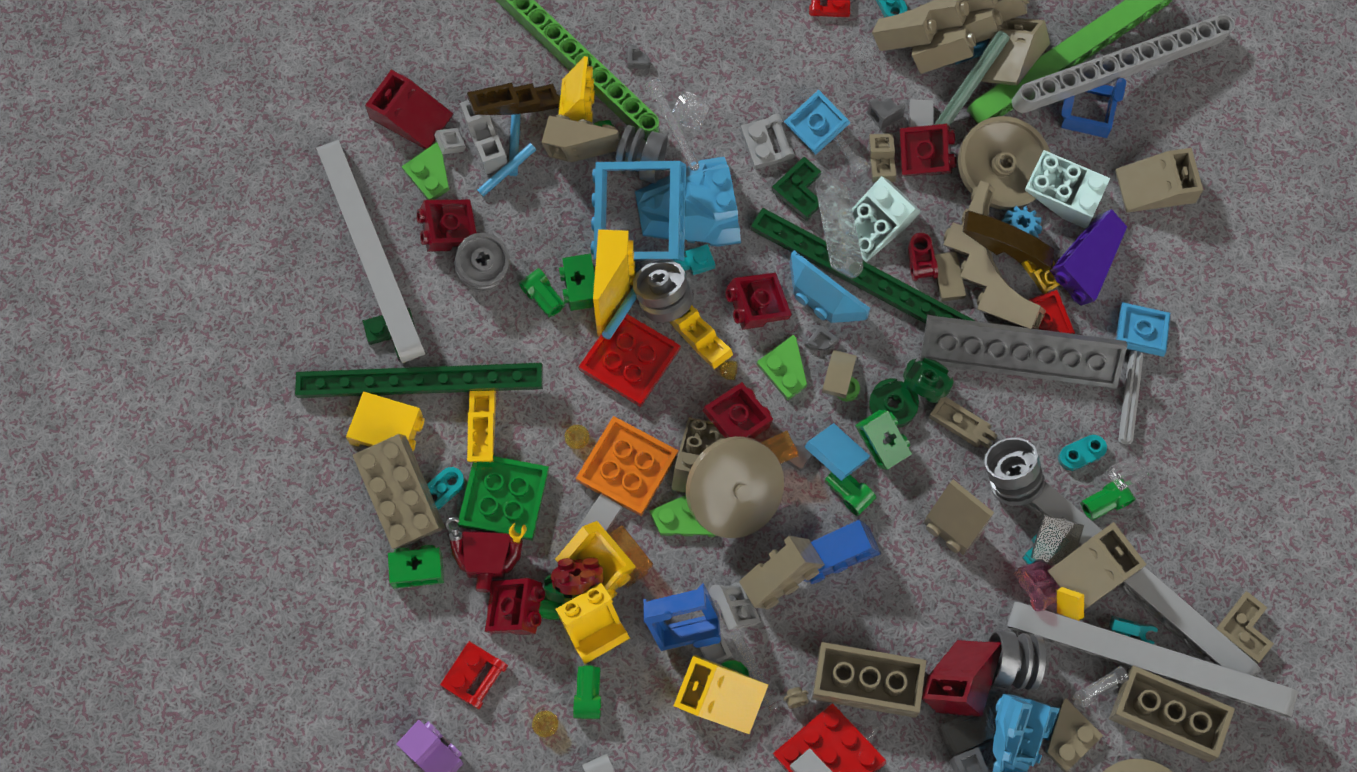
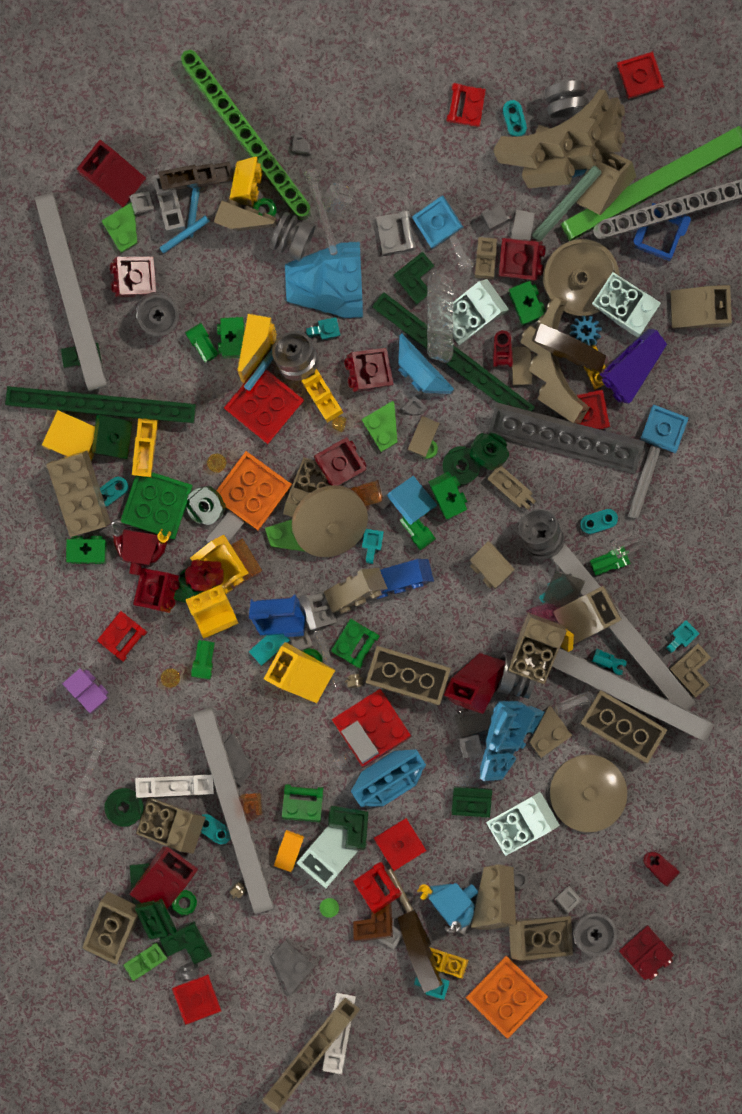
camera: 10 degrees right, 15 degrees up
(437, 418) = (111, 437): none -> dark green plate
(582, 489) = (214, 500): none -> plate
(673, 666) = (268, 647): none -> teal plate
(676, 207) = (314, 285): dark azure window -> none
(781, 644) = (349, 640): none -> green plate
(793, 512) = (372, 541): none -> teal plate
(934, 197) = (526, 314): none -> green brick
(1040, 616) = (537, 648): none -> dark tan slope
(1224, 583) = (683, 635): none -> teal plate

